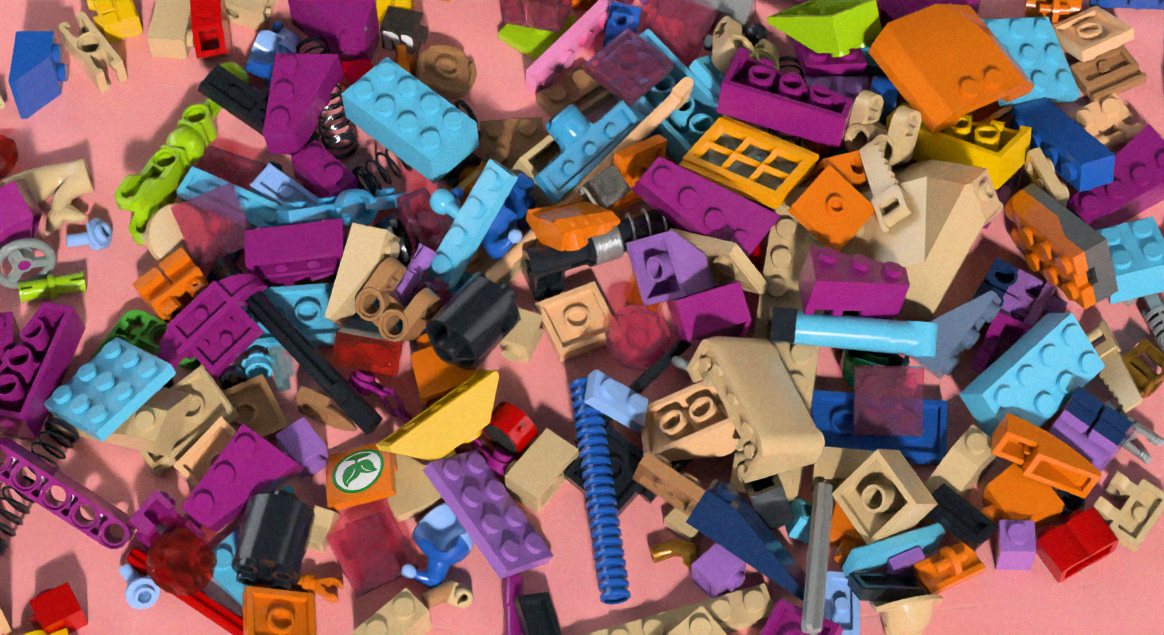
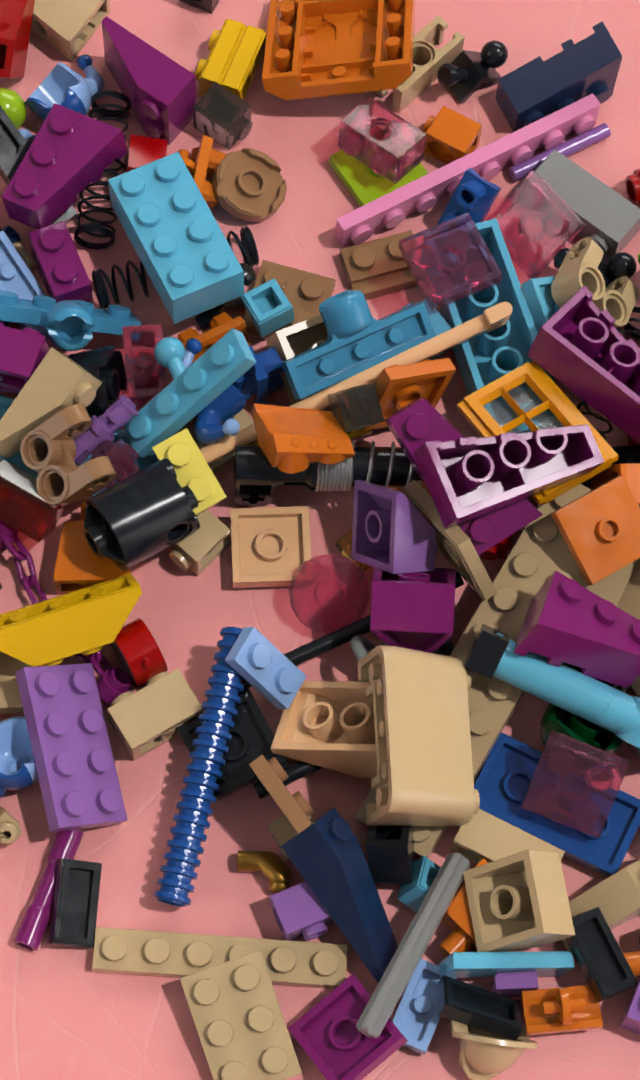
camera: 15 degrees right, 10 degrees up
(495, 272) = (191, 469): none -> light yellow plate
(502, 147) = (268, 307): none -> medium azure slope
(735, 189) = (494, 471): none -> wedge

